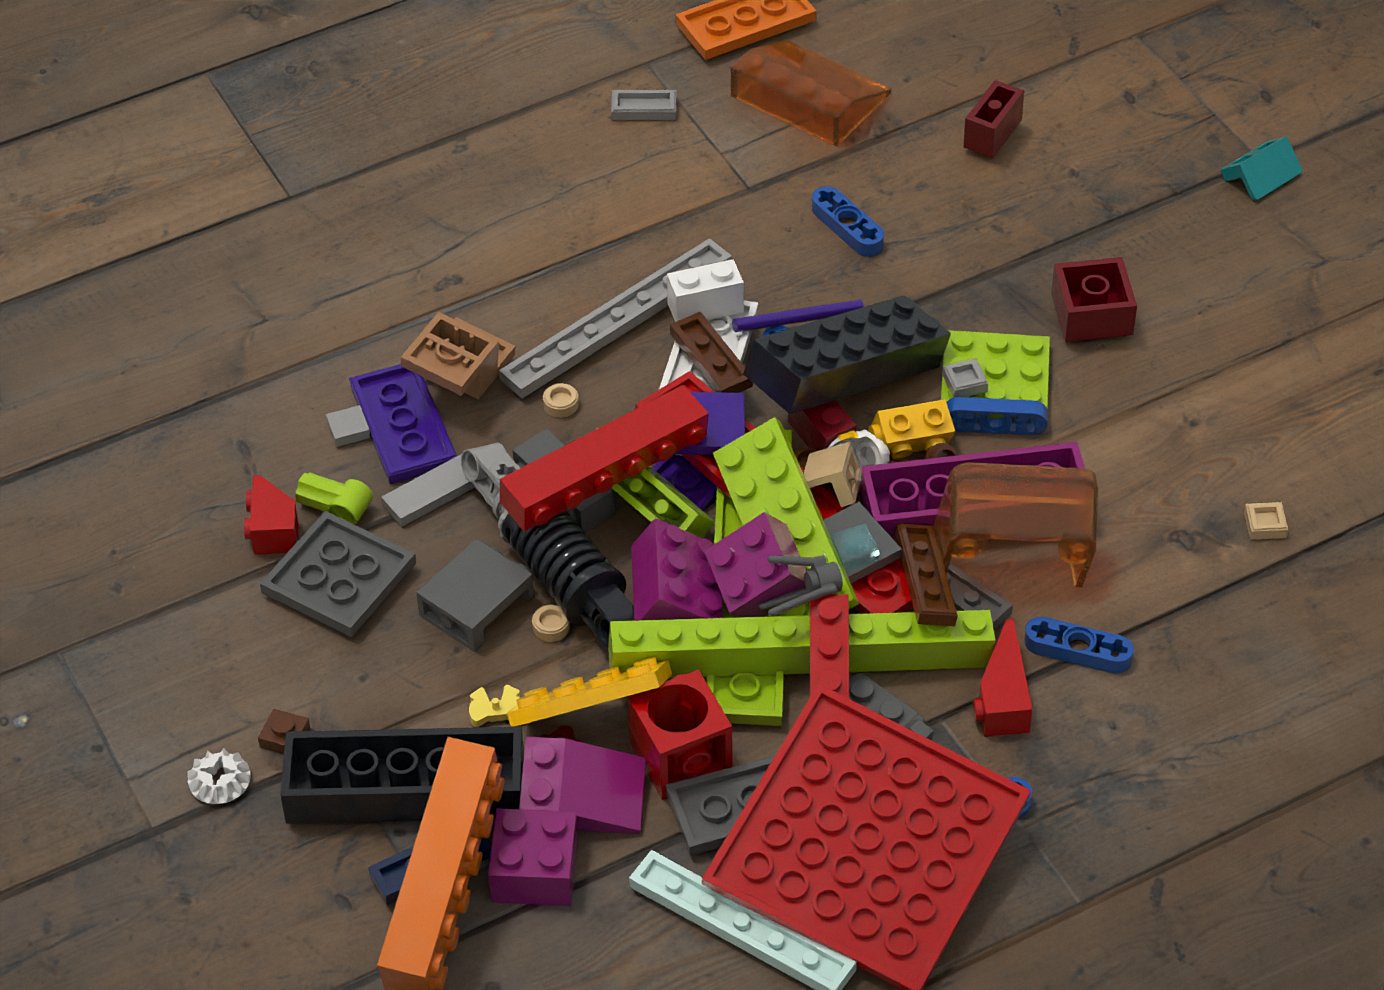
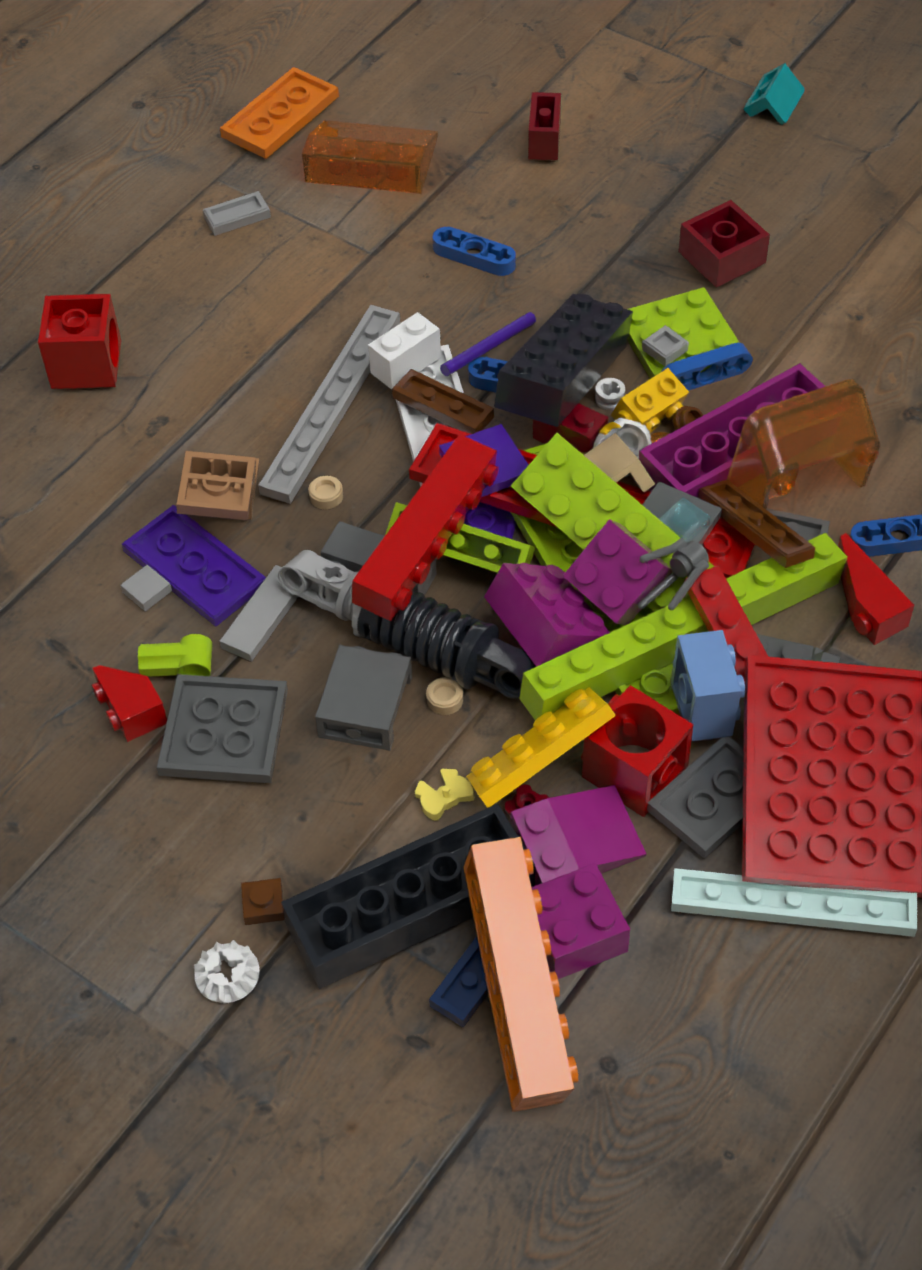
camera: 25 degrees left, 5 degrees up
(415, 177) = (80, 341): none -> red brick
(773, 698) = (707, 684): none -> medium blue brick
(887, 399) = (609, 393): none -> white bush

